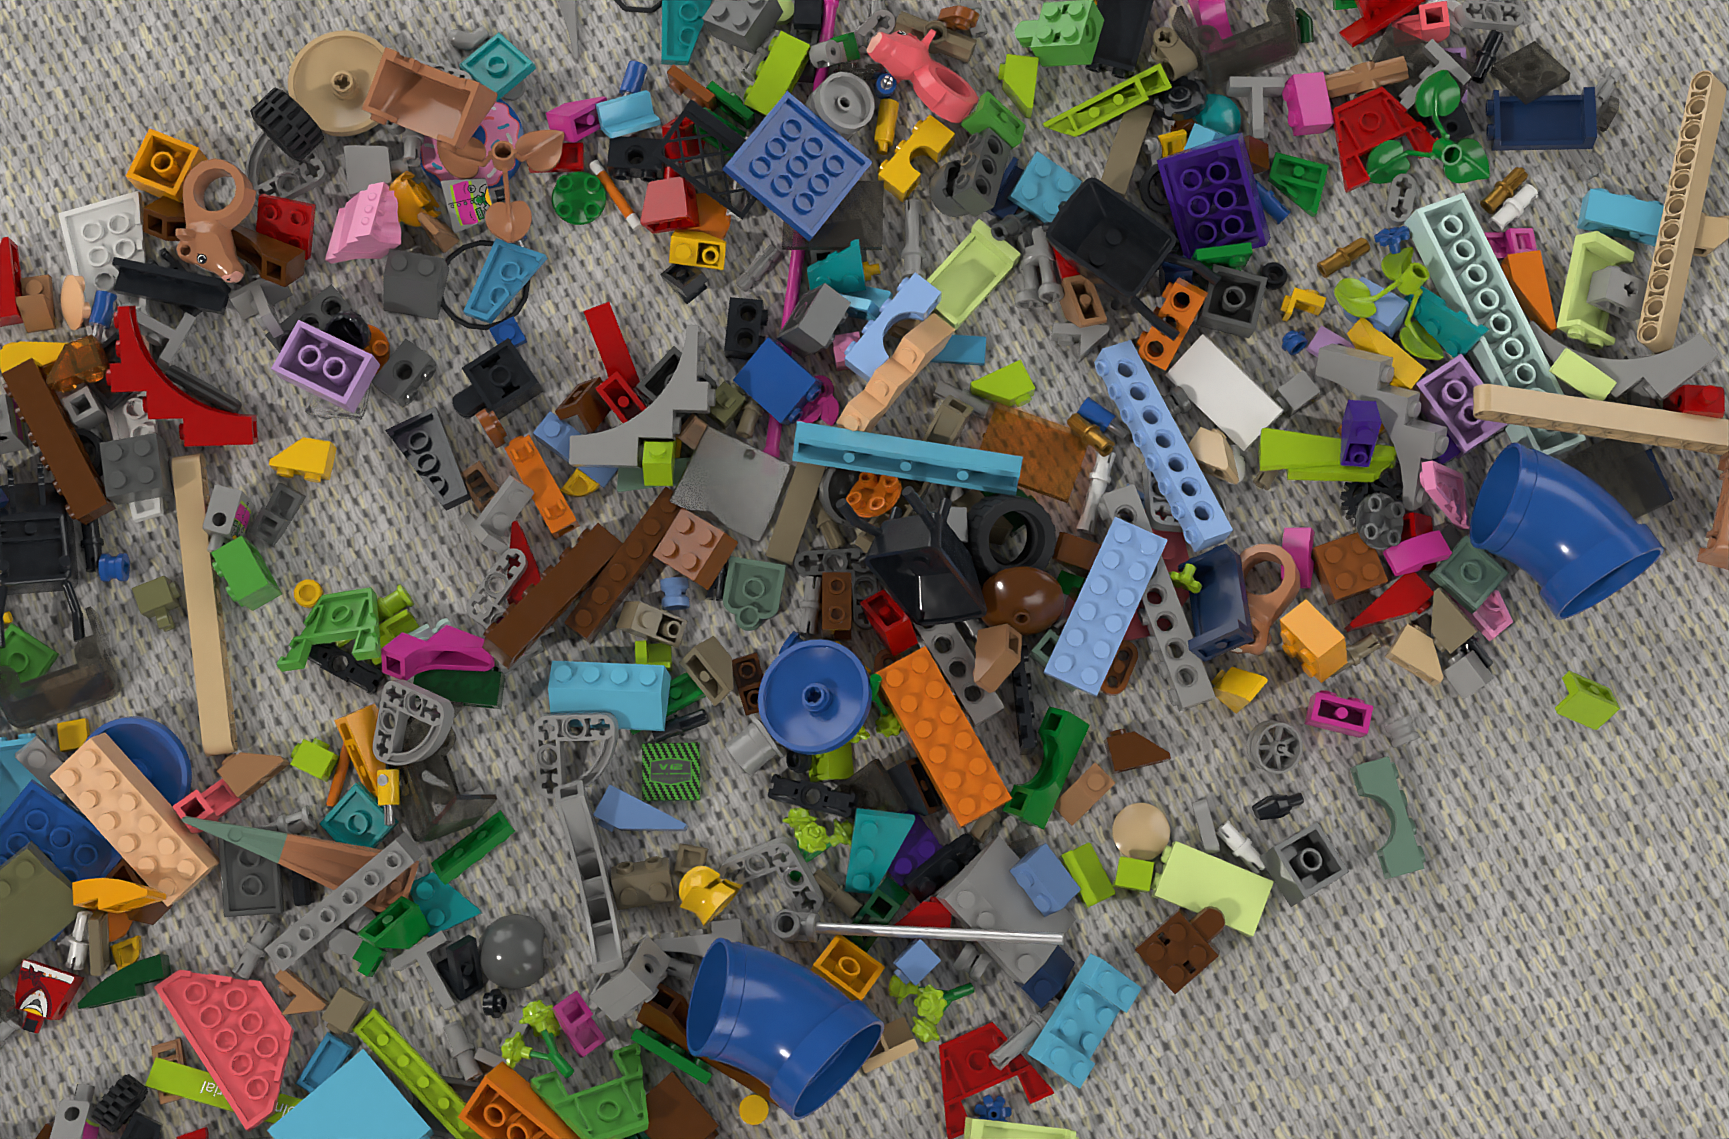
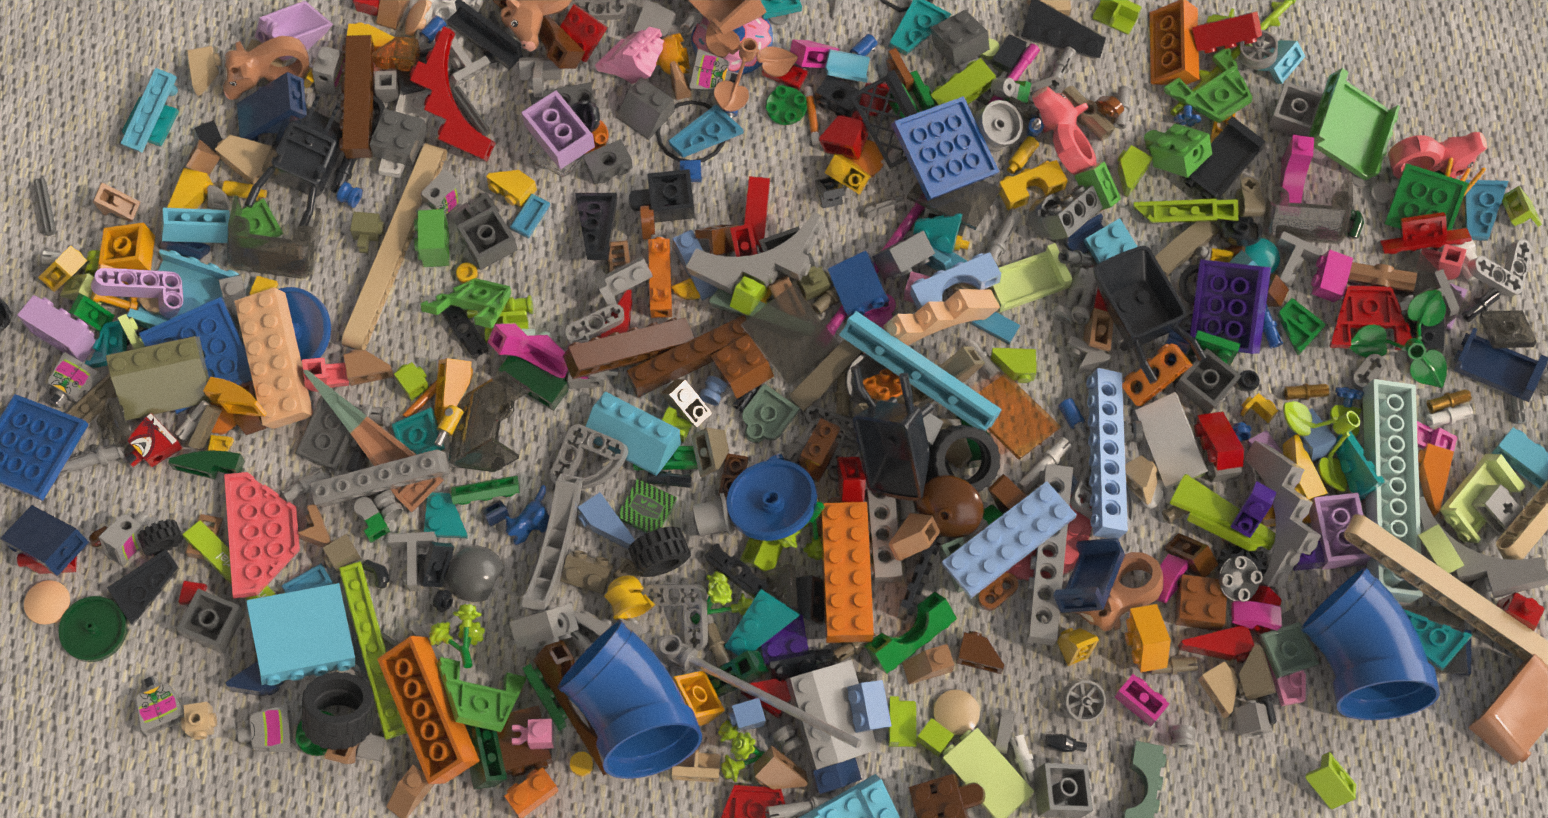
camera: 25 degrees right, 10 degrees down
(311, 540) = (487, 237): none -> dark grey brick
(346, 484) = (530, 216): none -> dark azure tile
(389, 740) = (464, 392): light grey beam -> none
(397, 926) = (406, 513): green slope -> none
(403, 1007) = (379, 571): none -> black arm
(463, 1051) = (404, 619): light grey pin -> none
(498, 867) = (495, 513): none -> dark blue slope
(546, 851) = (532, 517): none -> blue animal
(578, 1024) = (492, 642): dark pink slope -> none
(689, 1109) = (538, 734): none -> bright pink brick
(716, 821) = (659, 551): none -> black tyre
(739, 329) = (849, 238): black brick -> none
(798, 762) = (739, 542): black plate -> none
(981, 1004) = (778, 771): none -> medium nougat slope
(1091, 434) = (1060, 423): pearl gold axle -> none
(1186, 579) = (1076, 551): lime plant -> none
(1280, 368) = (1219, 441): none -> red brick
(1318, 514) = (1199, 555): none -> reddish brown slope
(1447, 491) = (1300, 582): bright pink wing -> none
(1625, 480) = (1438, 640): none -> teal wing

